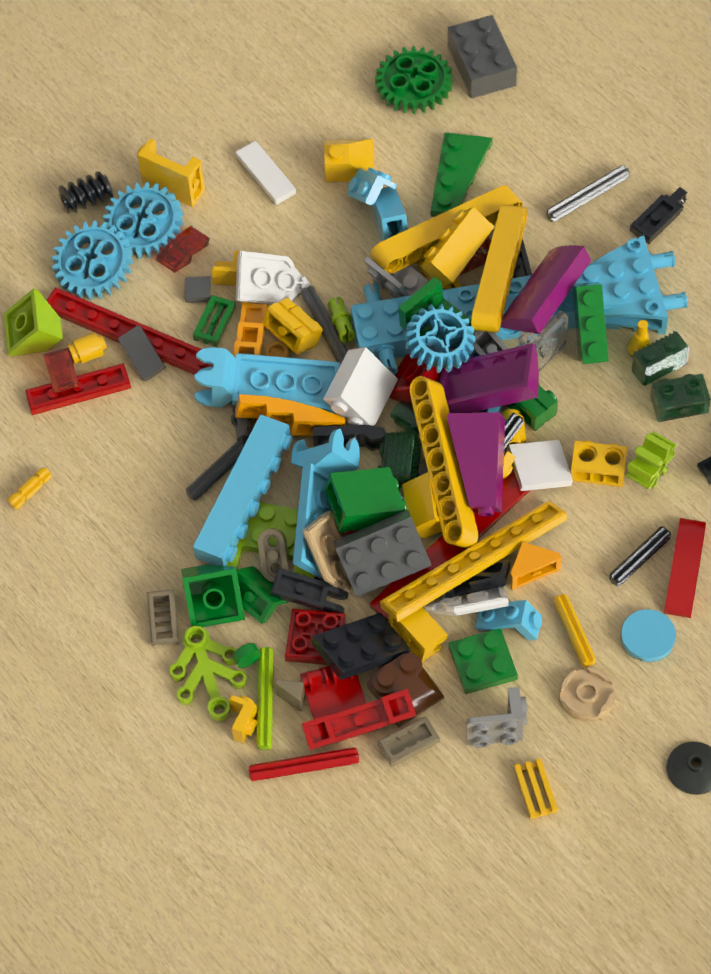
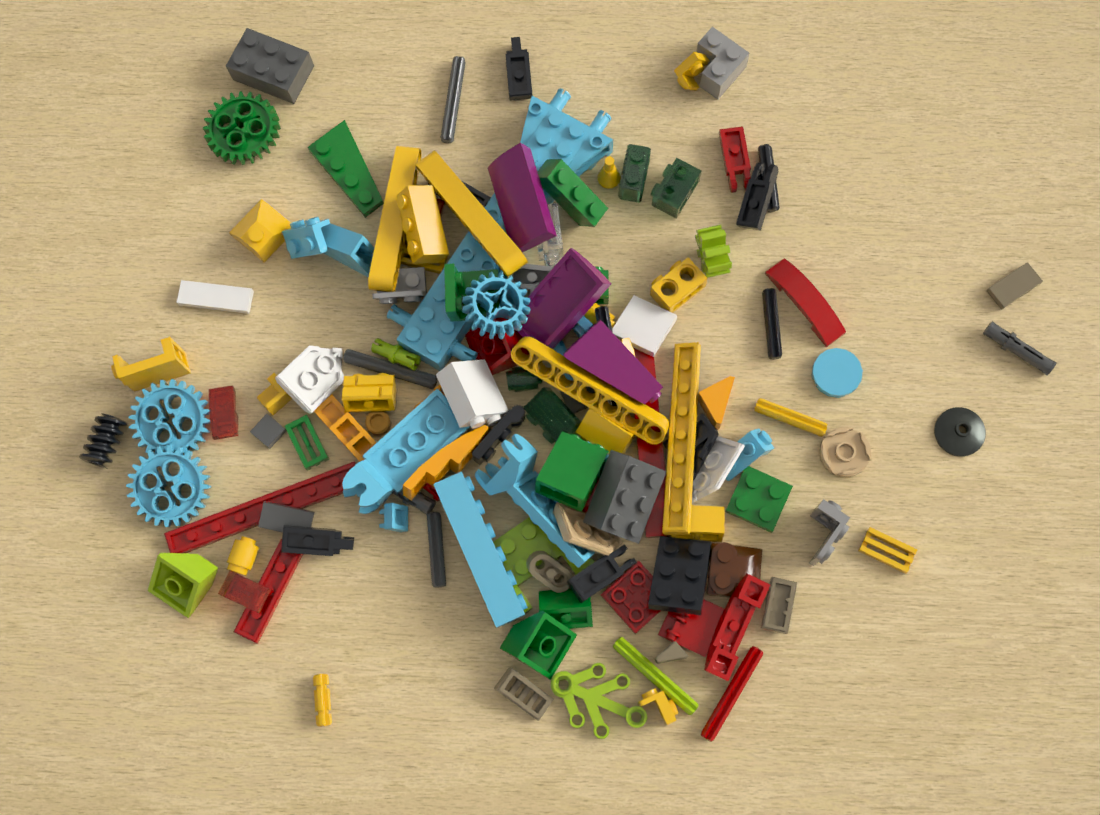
camera: 45 degrees left, 15 degrees up
(143, 383) = (314, 541): none -> black hinge
(214, 422) = (395, 517): none -> medium azure tile
(246, 655) = (614, 661): green tile -> none

